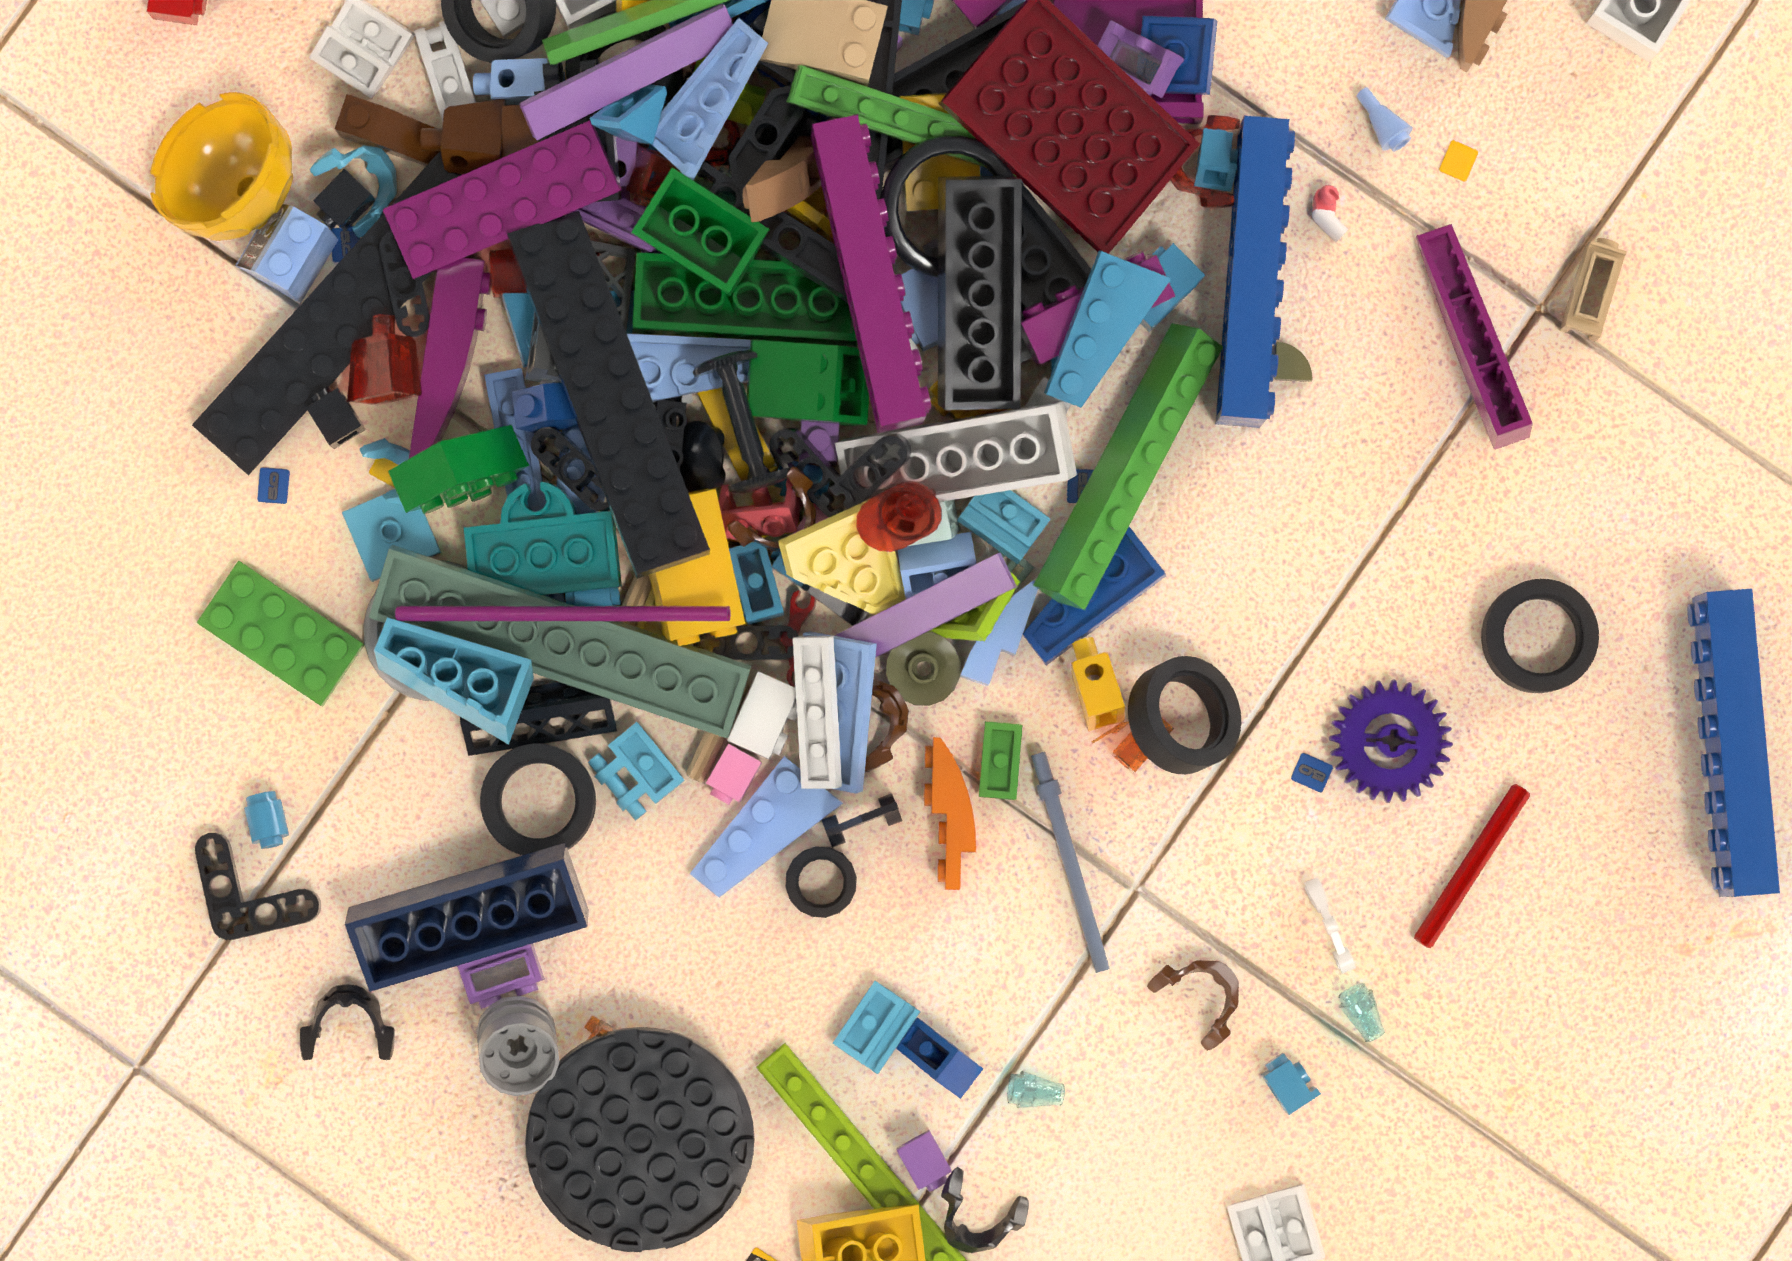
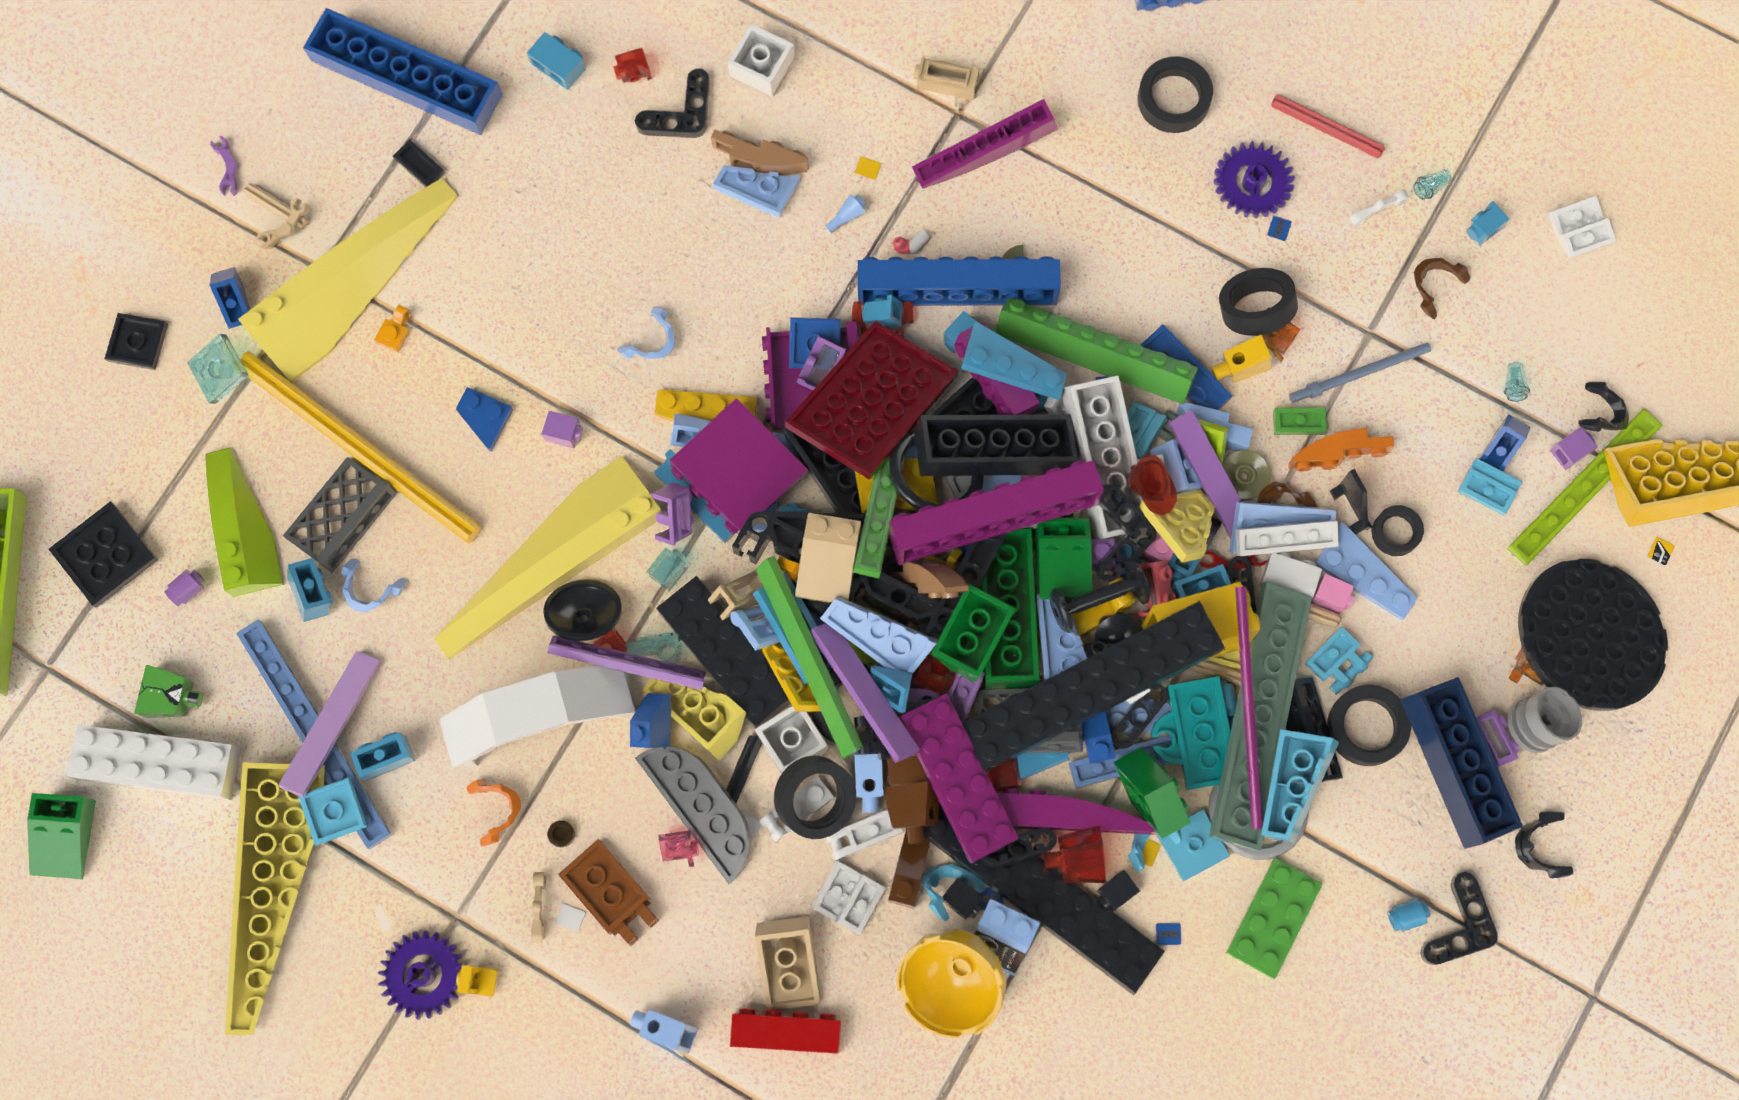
camera: 90 degrees left, 10 degrees down
(801, 484) = (1175, 591): reddish brown helmet -> none

